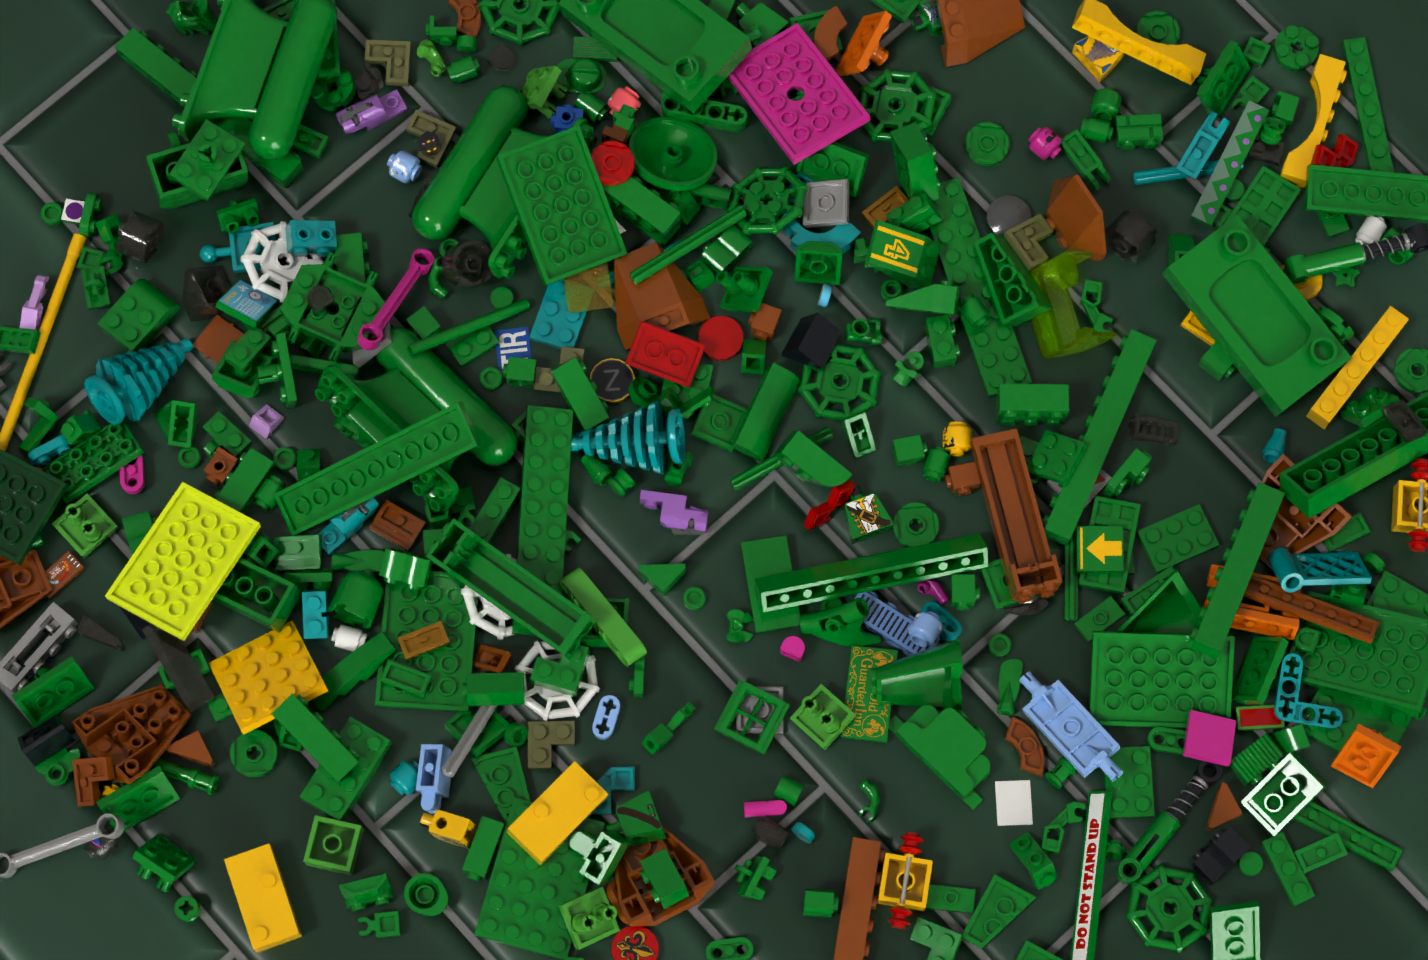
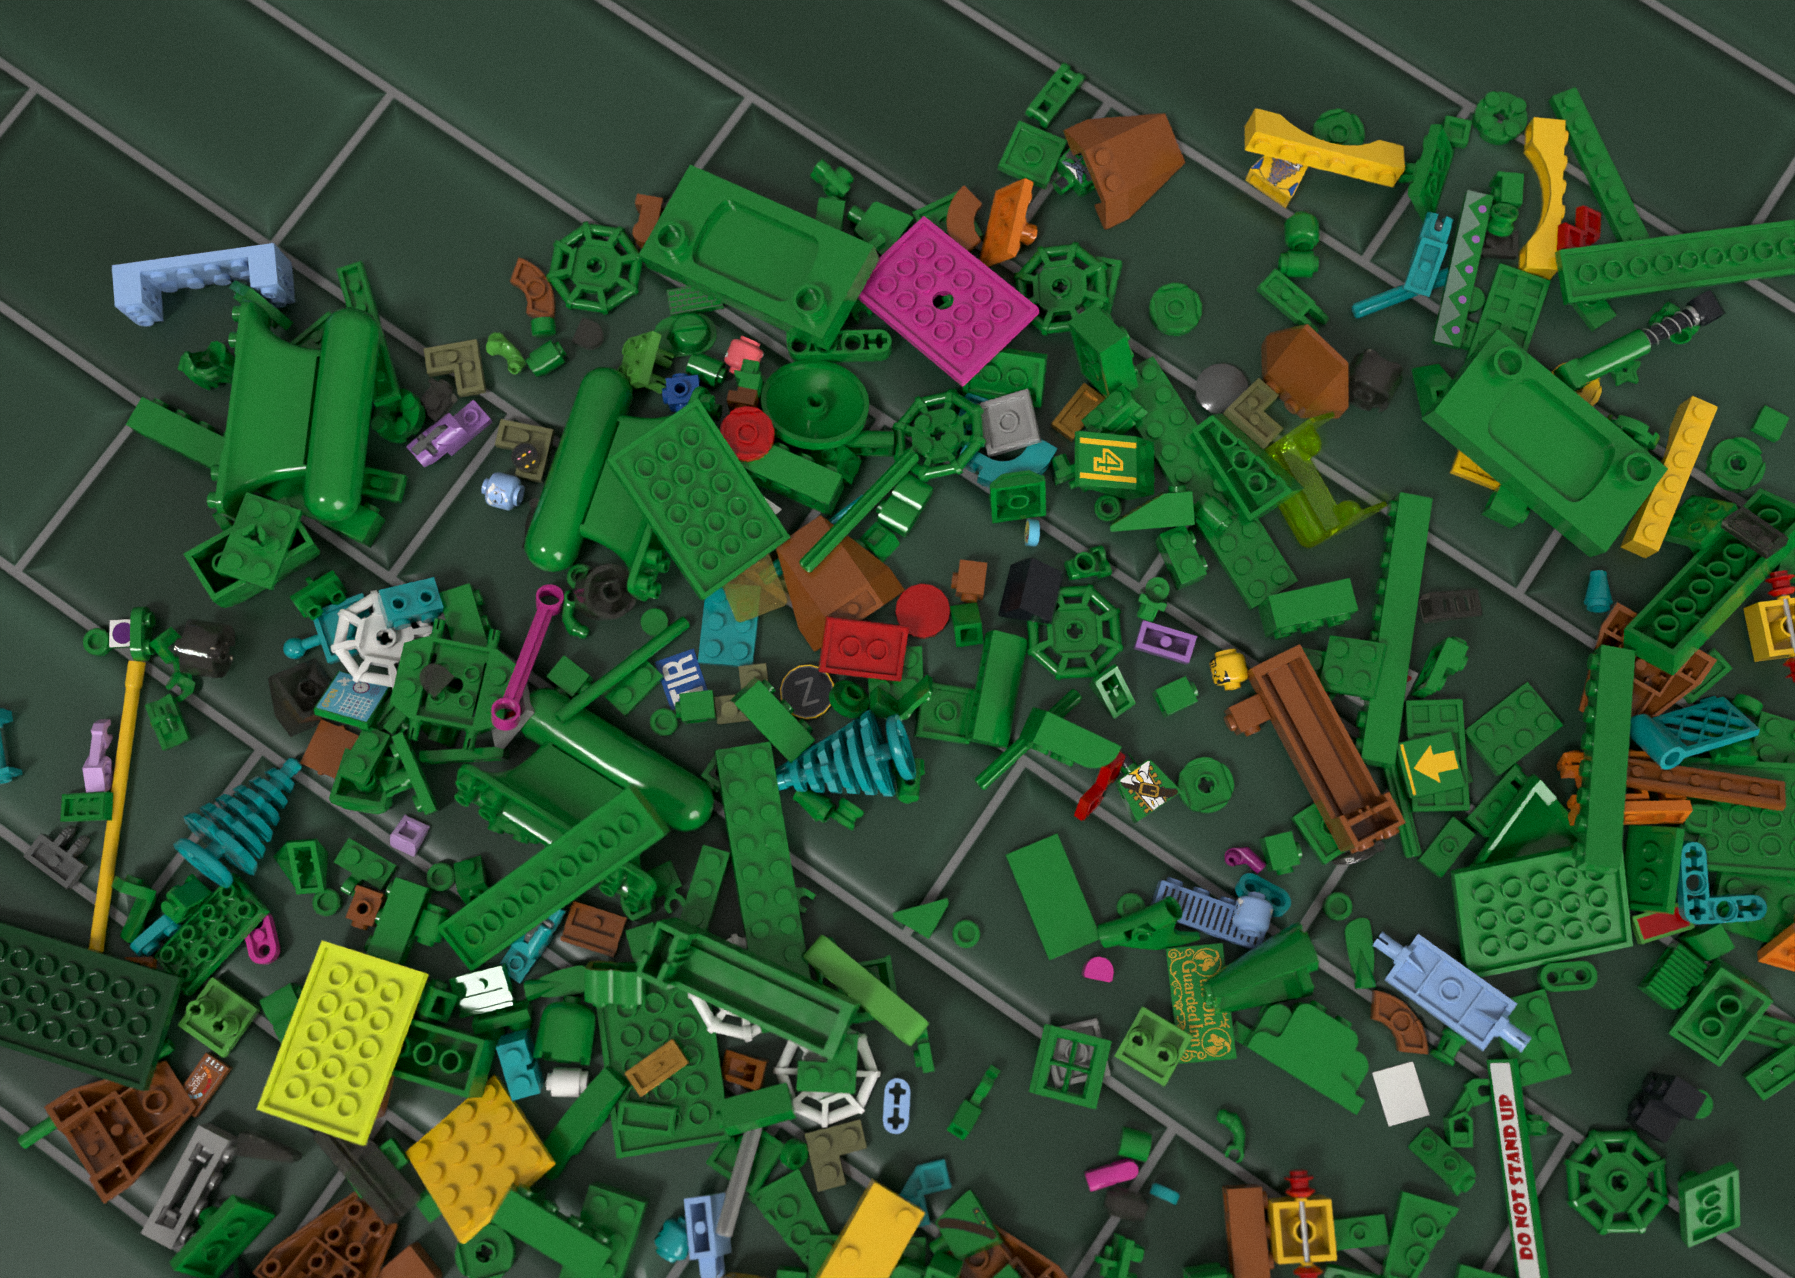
camera: 10 degrees left, 5 degrees up
(90, 258) = (154, 687): green tile -> none
(138, 316) = (227, 744): green brick -> none
(441, 35) = (512, 323): green bracket -> none
(675, 514) = (920, 838): medium lavender plate -> none
(735, 633) = (1025, 965): green piece -> none
(744, 288) = (937, 546): green plate -> none
(871, 572) = (1169, 858): green brick -> none
(910, 405) = (1165, 642): none -> medium lavender brick
(936, 464) = (1211, 705): green brick -> none
(1045, 143) = (1243, 293): dark pink head -> none
(1094, 289) = (1353, 488): green piece -> none
(1138, 131) = (1346, 254): green brick -> none
(1166, 824) = (1588, 1080): piece -> none
(1209, 738) = (1616, 966): dark pink tile -> none
(1223, 809) = (1649, 1046): dark orange slope -> none
(1253, 91) = (1464, 178): green plate -> none
(1287, 869) = (1741, 1100): green plate -> none
(1371, 230) = (1642, 312): white brick -> none

